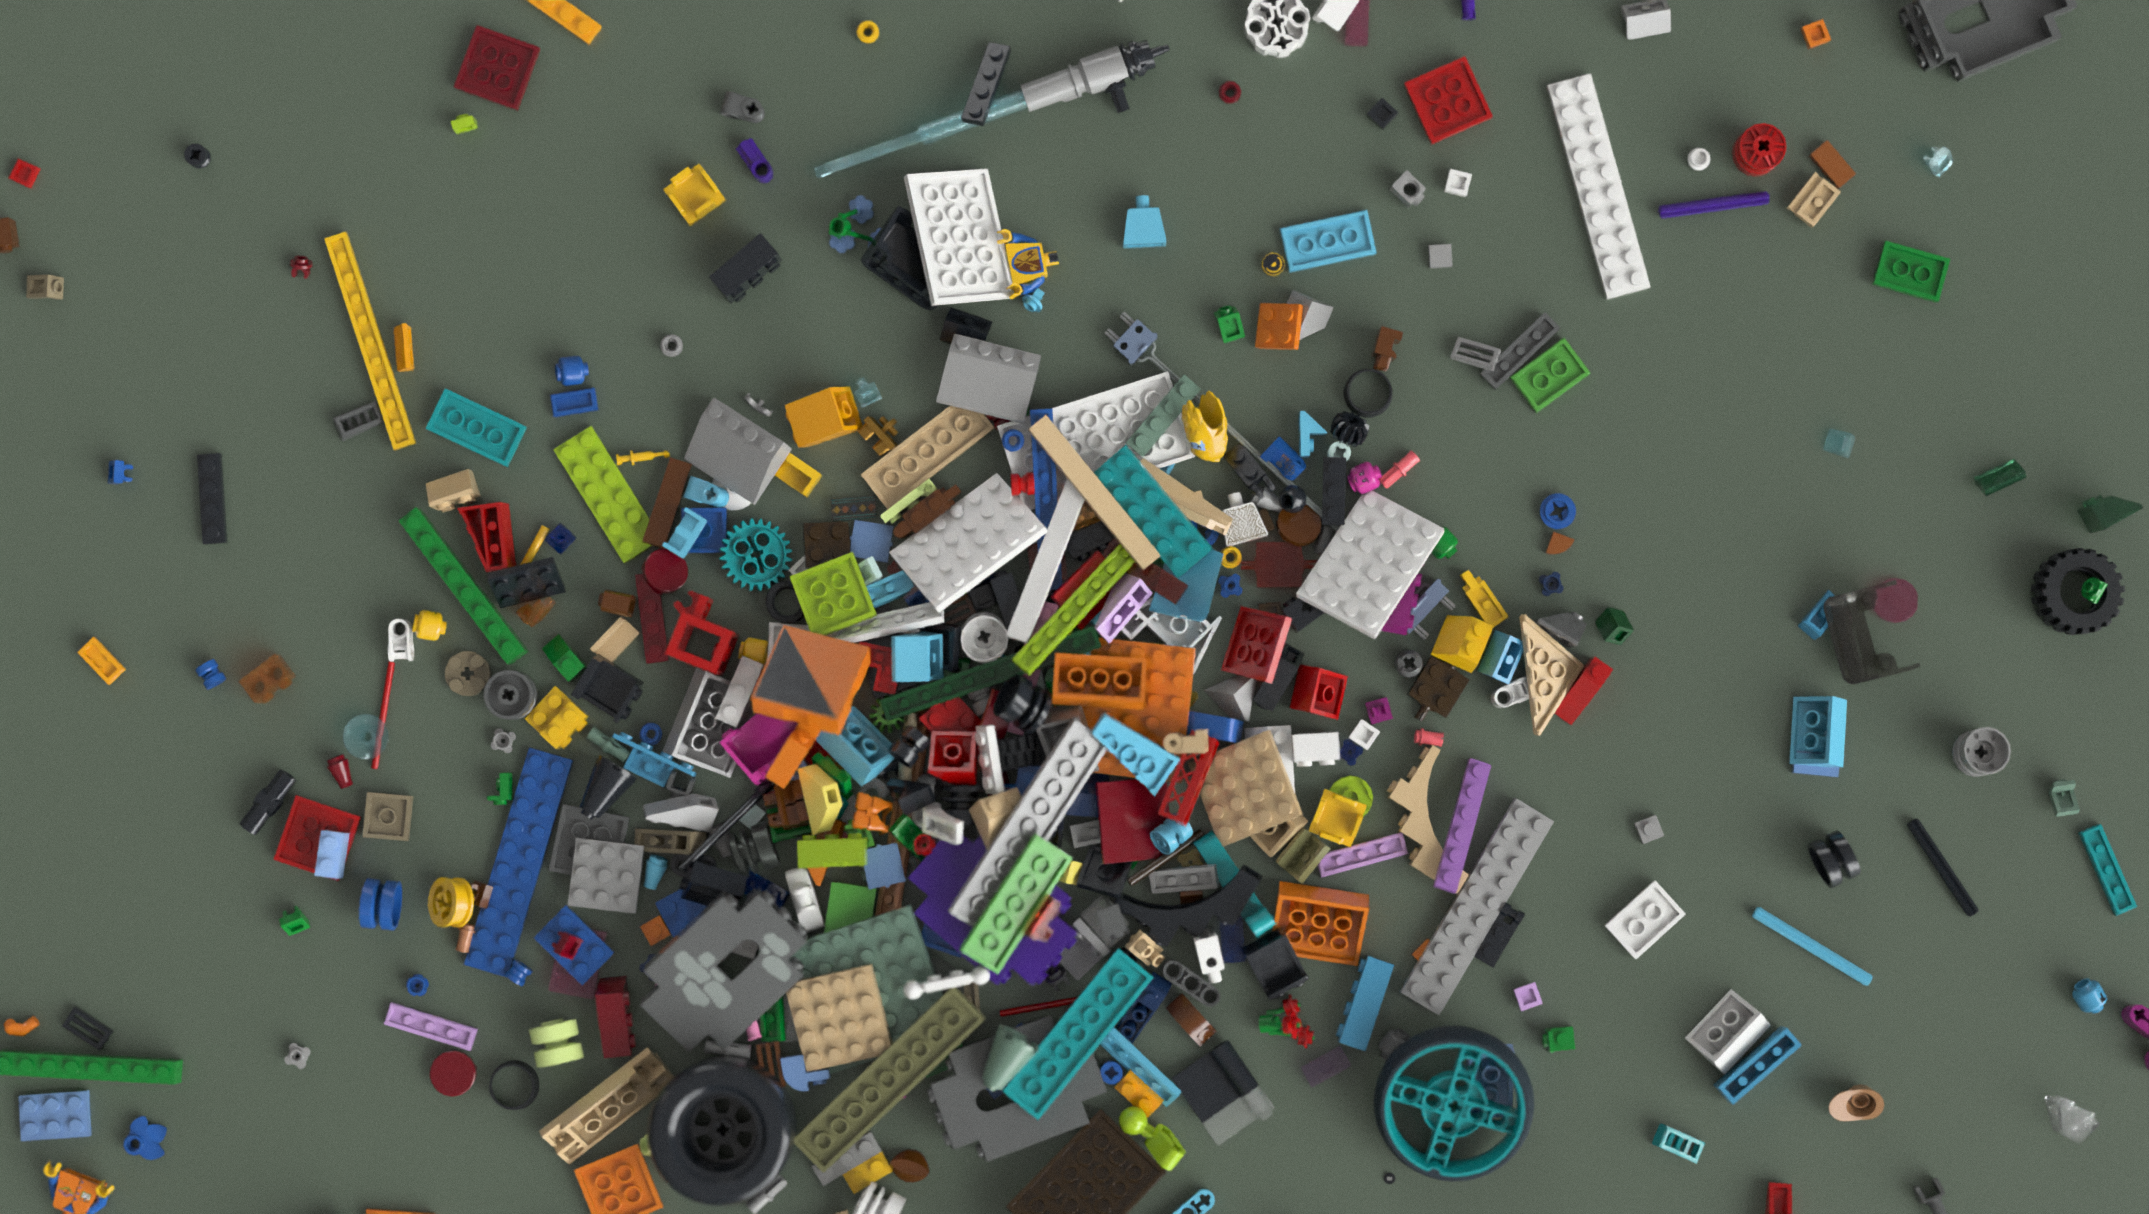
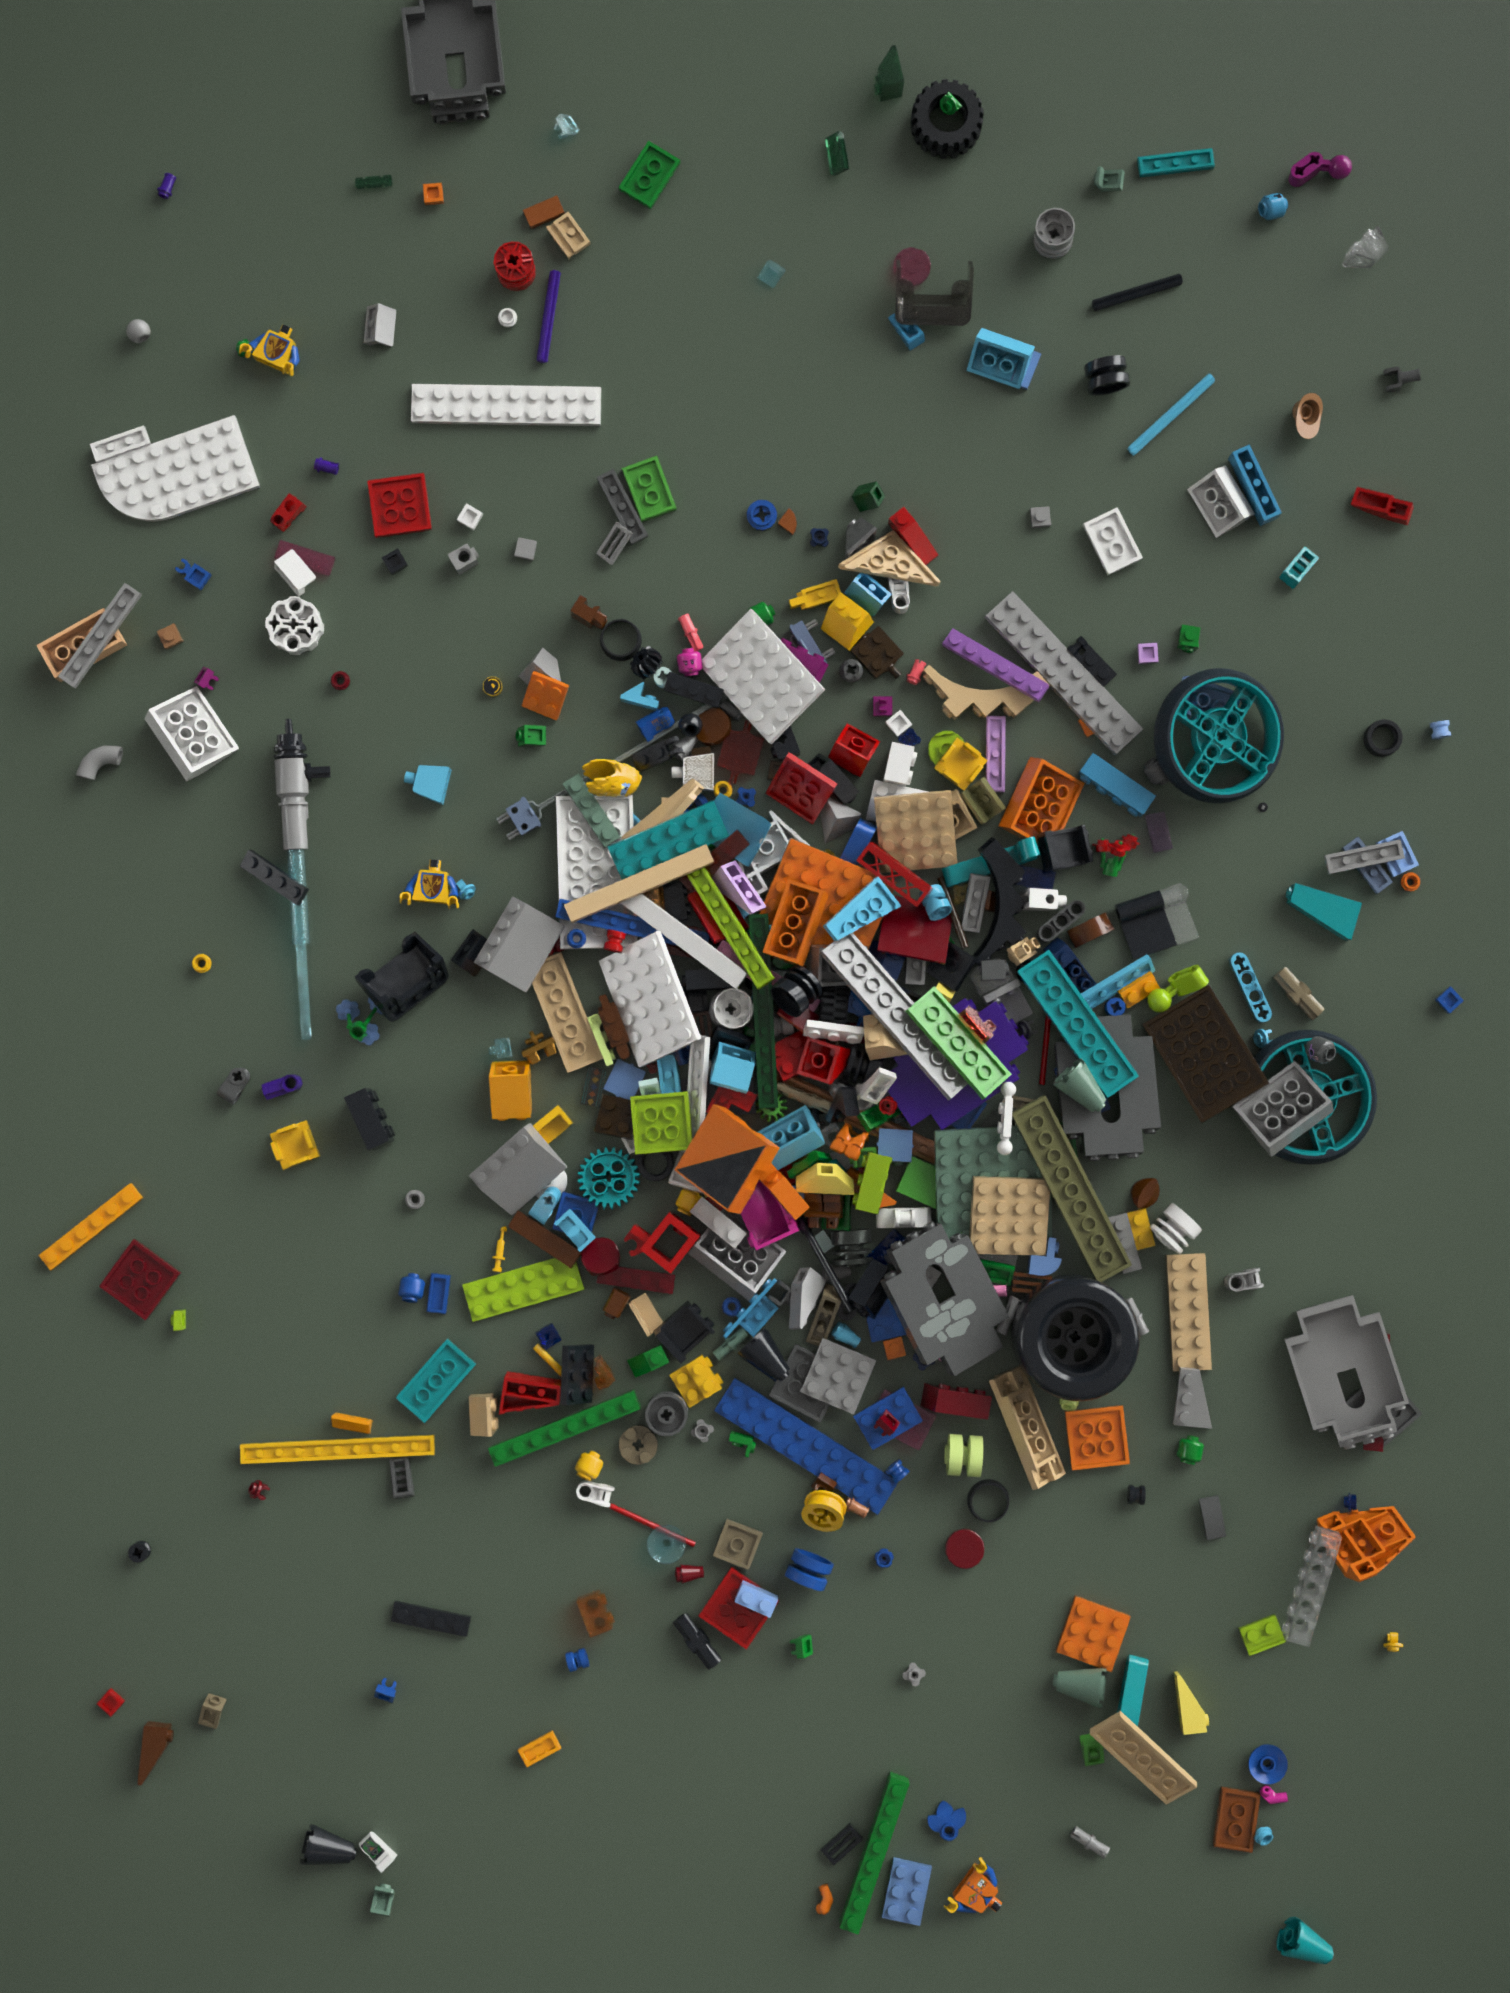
camera: 70 degrees left, 0 degrees up
(430, 1026) = (920, 1556): lavender tile -> none
(757, 406) = (485, 1142): light grey piece -> none
(903, 752) = (807, 1100): black wheel -> none
(959, 236) = (394, 935): white plate -> none
(1182, 743) = (865, 872): tan leg -> none
(1328, 241) = (486, 636): medium azure tile -> none

